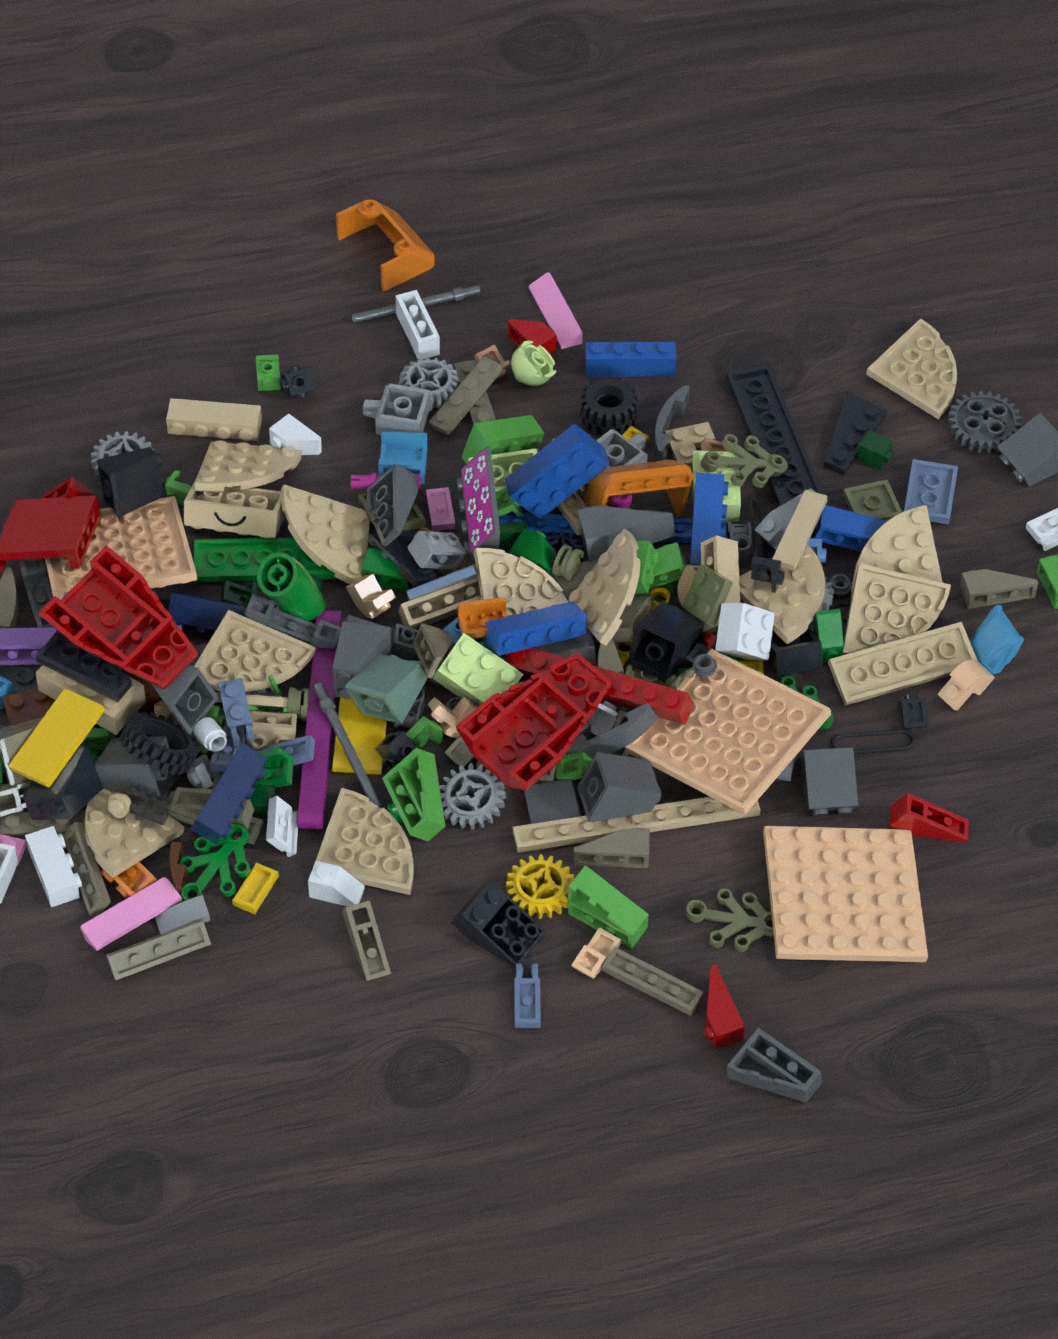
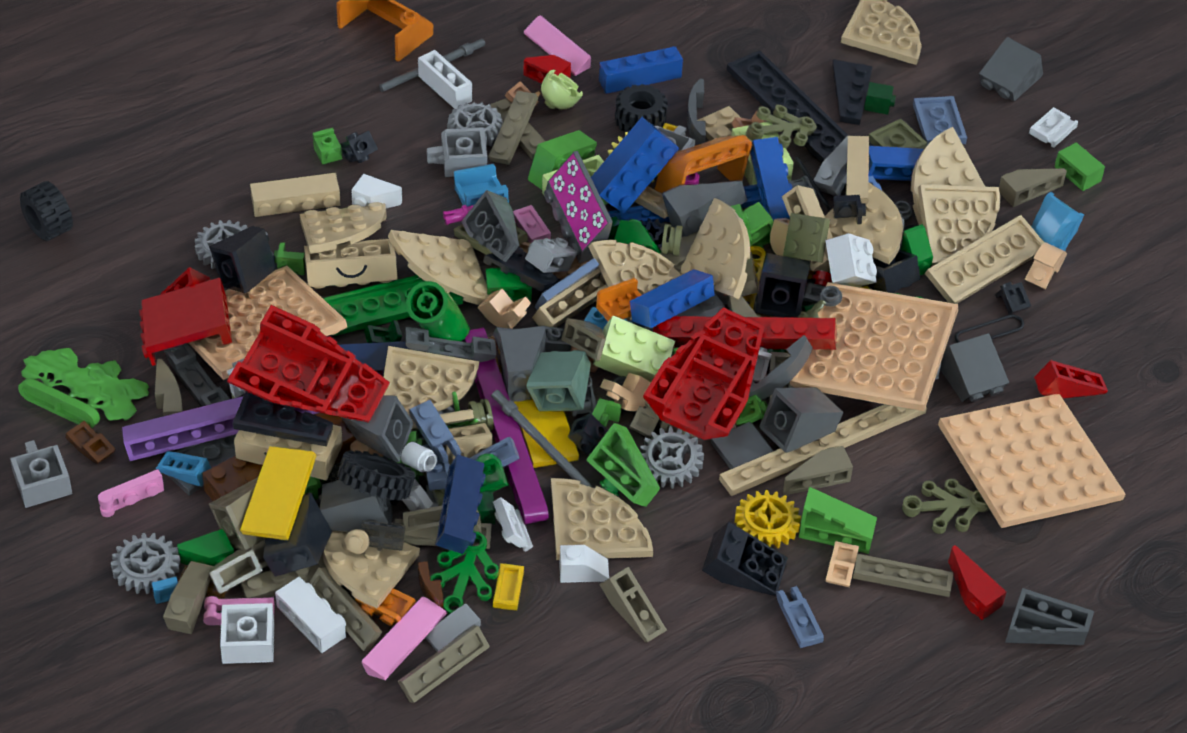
camera: 20 degrees left, 5 degrees down
(983, 421) = (955, 57): dark grey gear -> none

